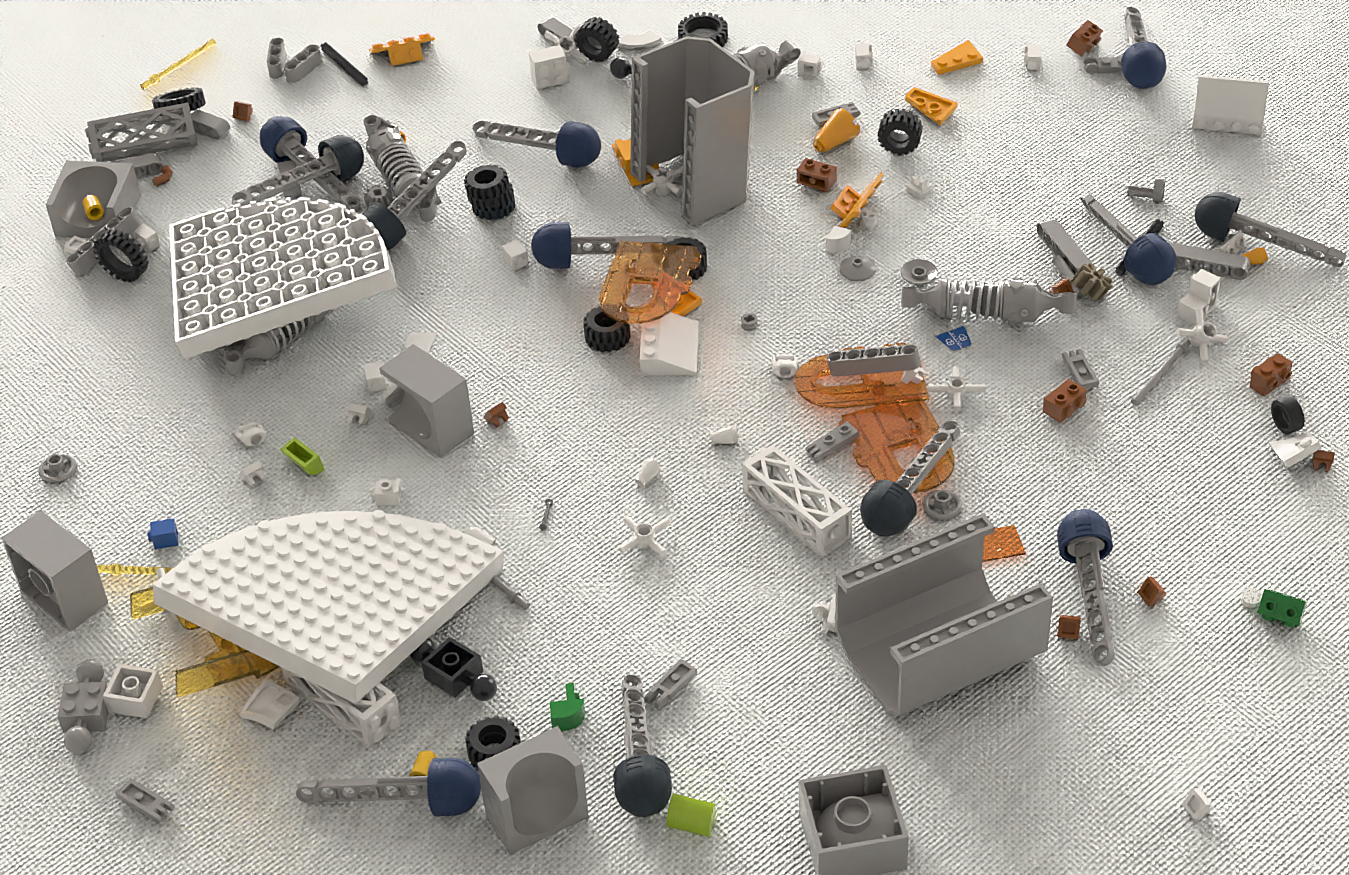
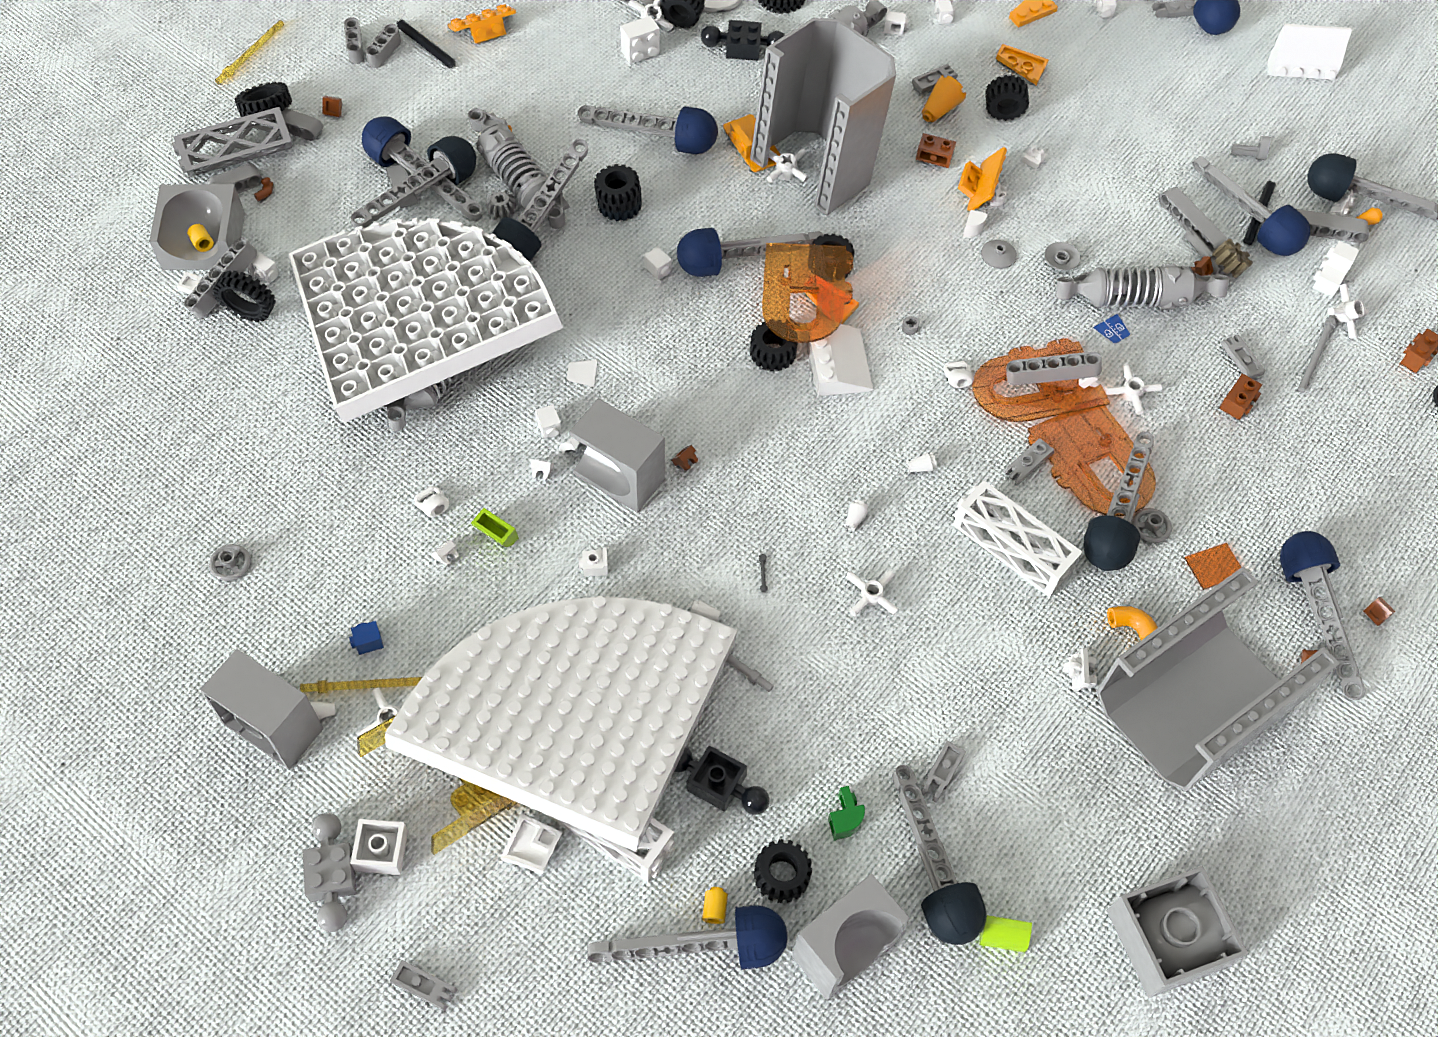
camera: 15 degrees left, 15 degrees up
(111, 586) = (323, 709): none -> white cone

